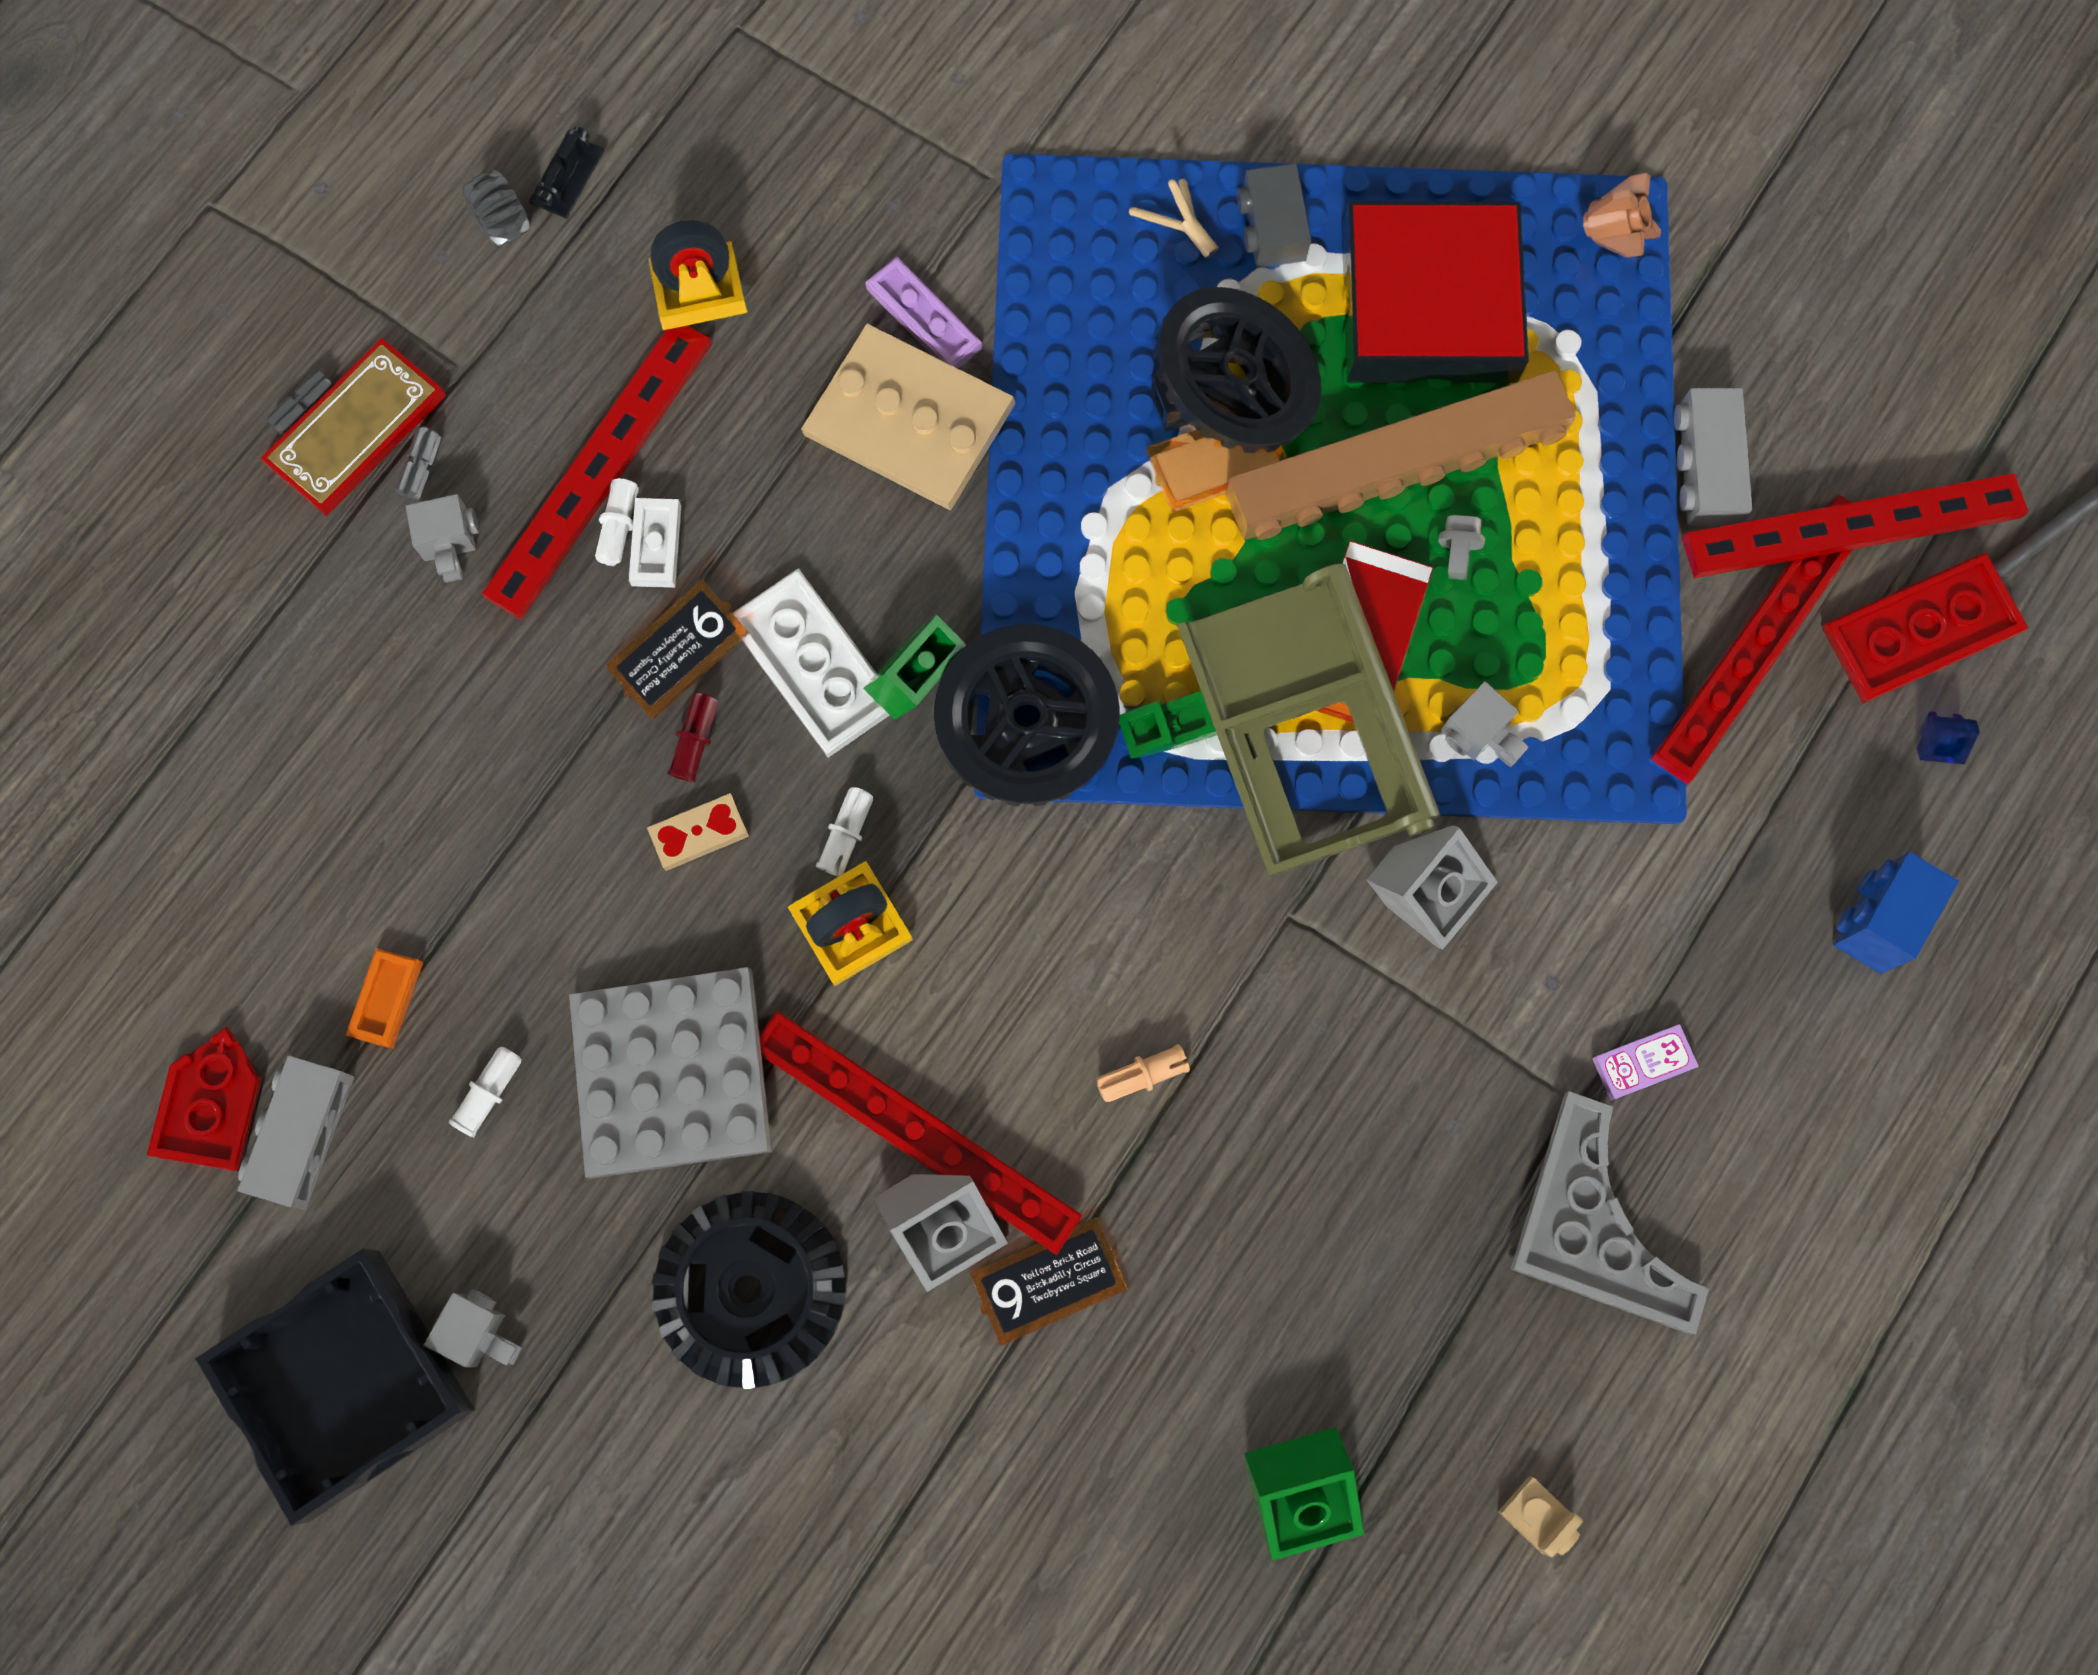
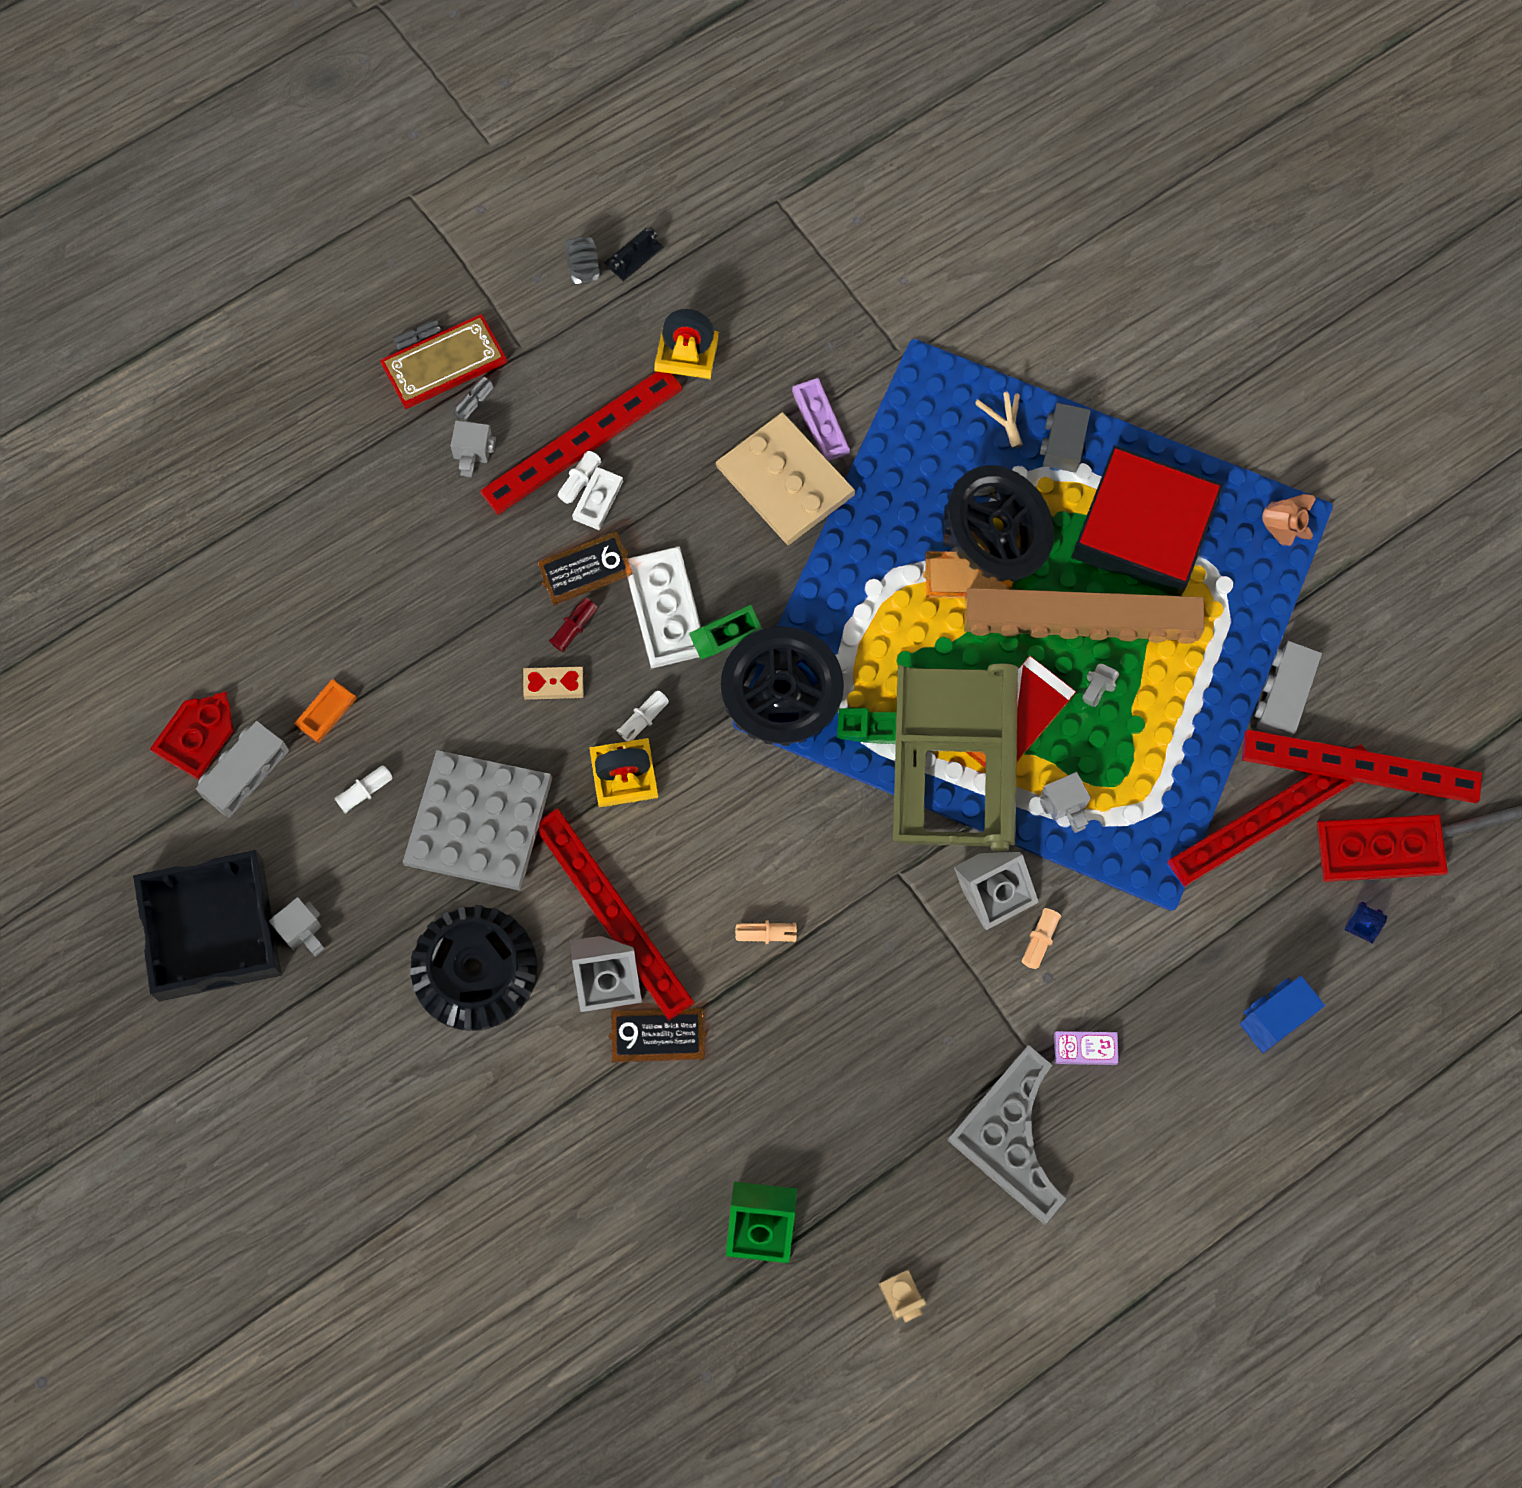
camera: 20 degrees right, 5 degrees down
(1523, 932) = (1041, 938): none -> light nougat axle

